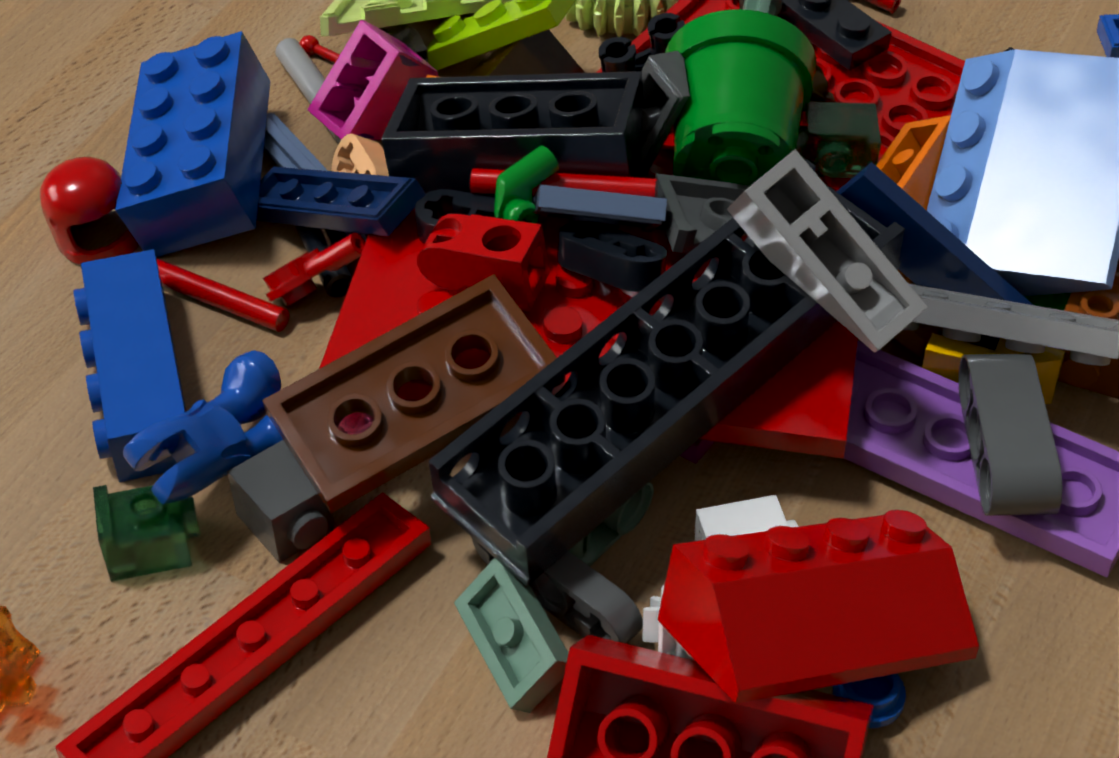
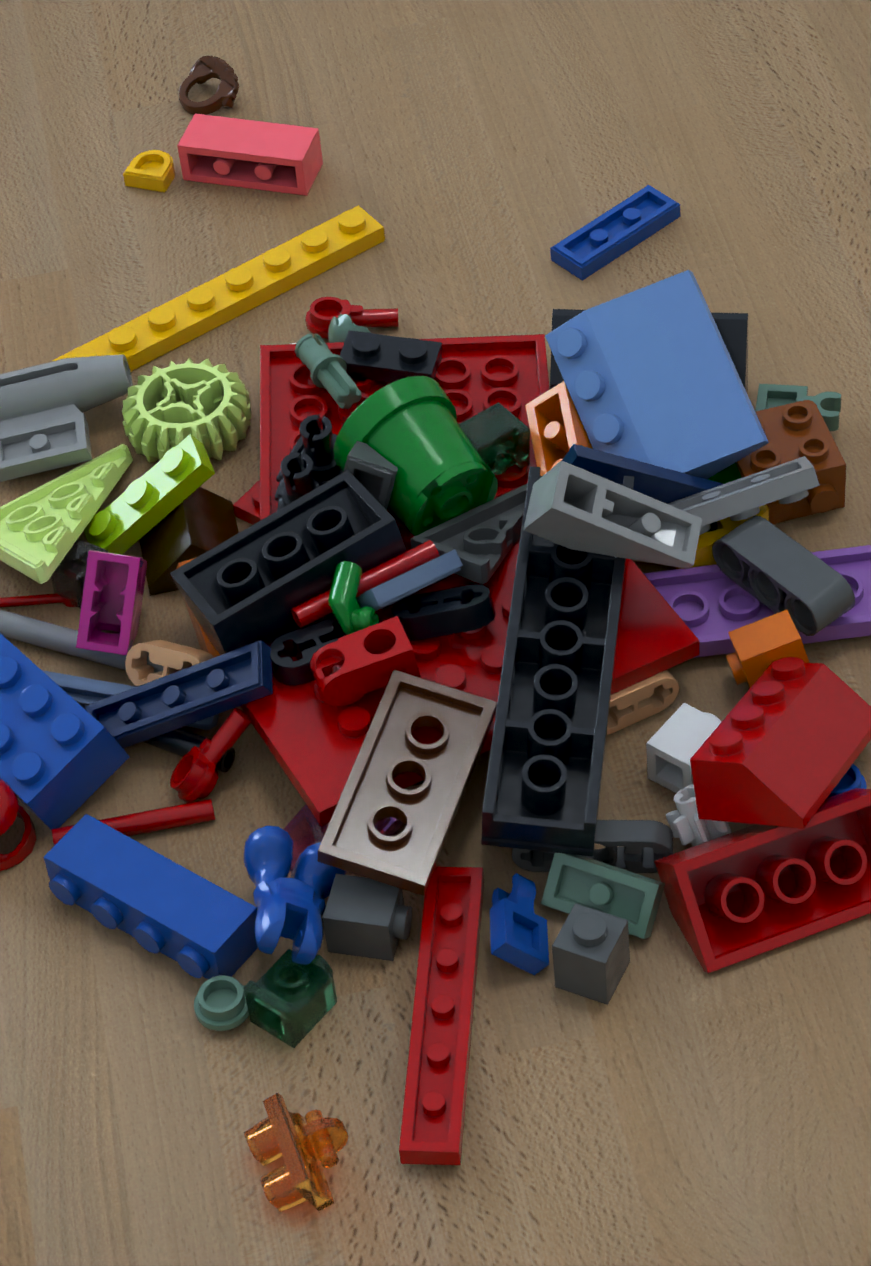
camera: 35 degrees left, 0 degrees up
(76, 494) = (221, 1003): none -> sand green plate
(398, 612) = (515, 929): none -> blue plate
(433, 684) = (591, 953): none -> dark grey brick
(744, 468) = (641, 701): none -> light nougat beam
(929, 489) = (761, 644): none -> orange brick

